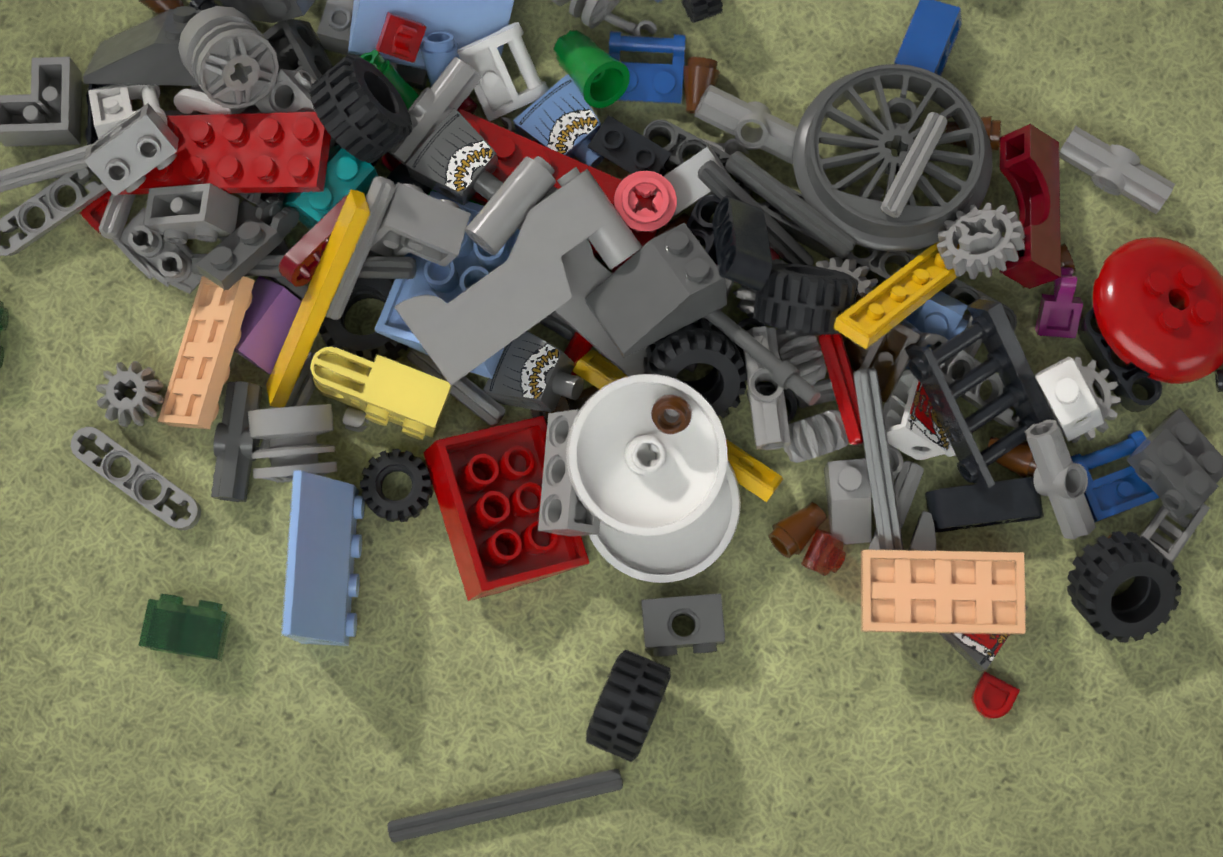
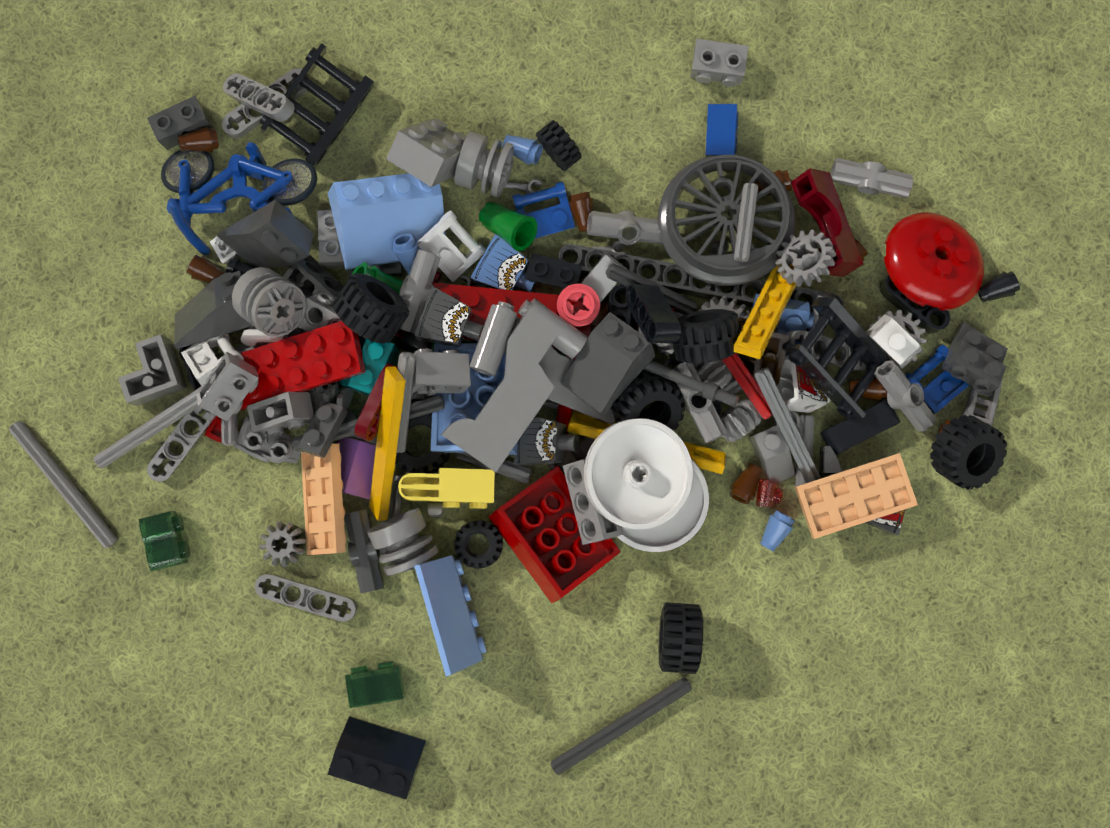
camera: 20 degrees left, 5 degrees up
(152, 729) = (377, 757): none -> black slope
(401, 37) = (377, 248): red tile -> none
(667, 423) = (646, 448): reddish brown plate -> none
(702, 609) = (711, 568): dark grey brick -> none
(790, 205) = (671, 274): dark grey axle -> none
(818, 607) = (777, 529): none -> medium blue cone
(993, 697) = (906, 548): red tile -> none
(1060, 312) = (867, 284): magenta plate -> none

